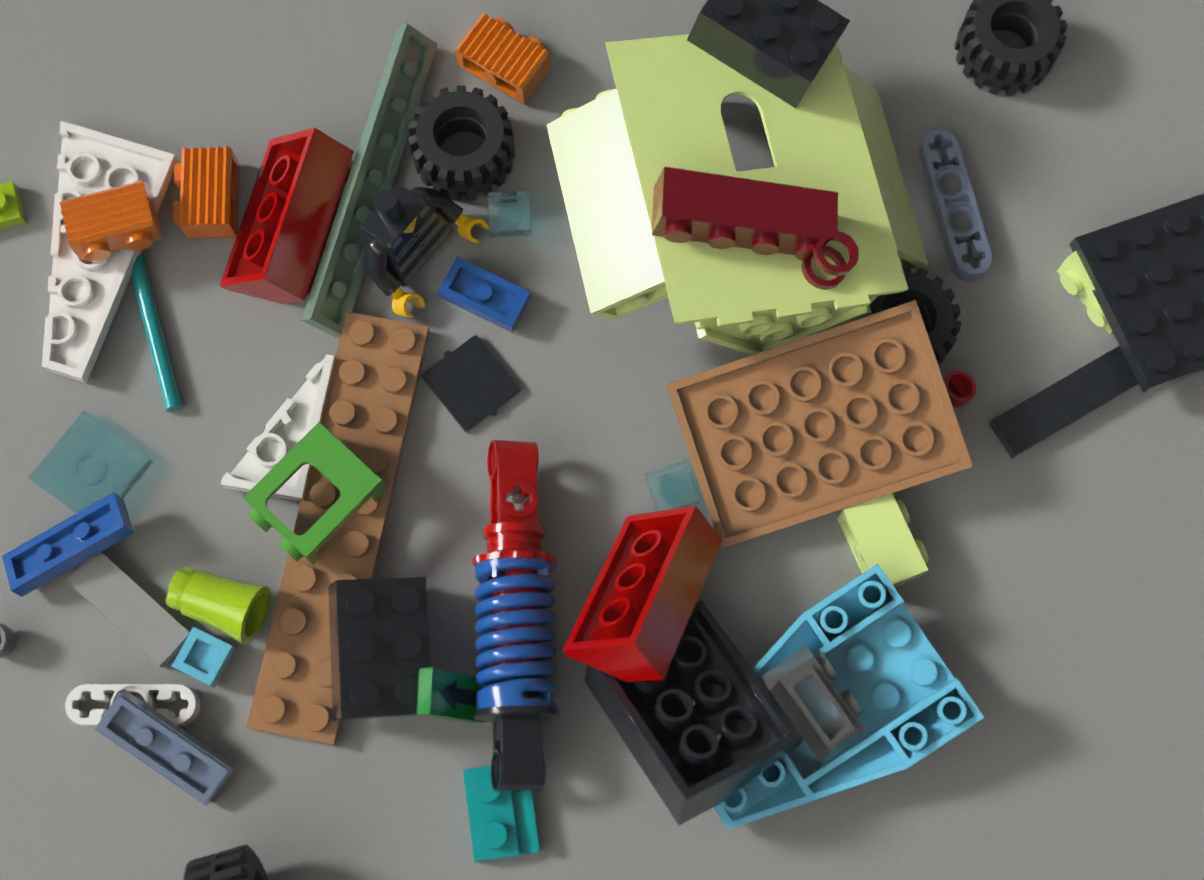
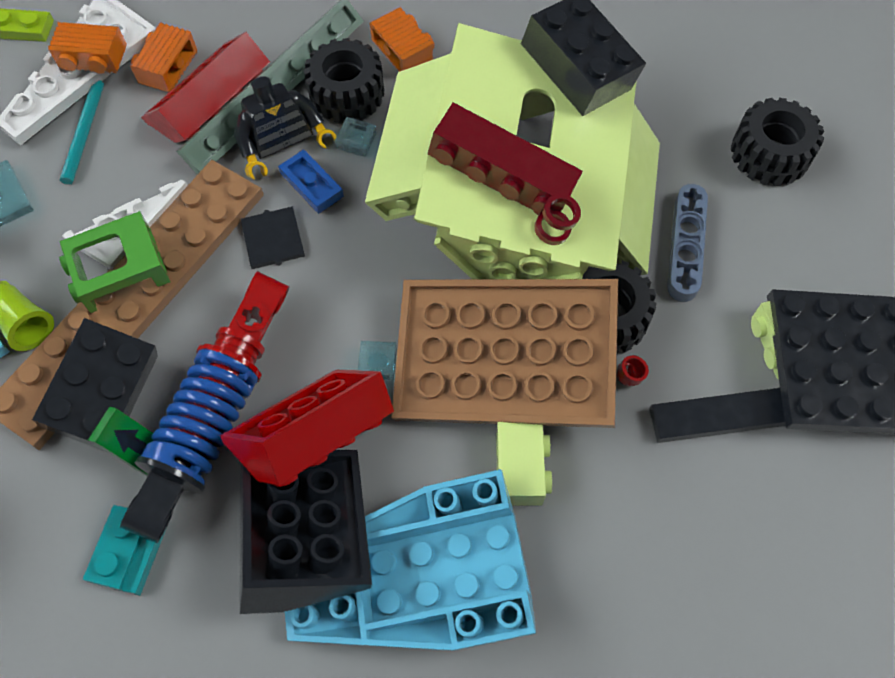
camera: 25 degrees right, 10 degrees down
(813, 702) = (399, 561): dark grey window -> none

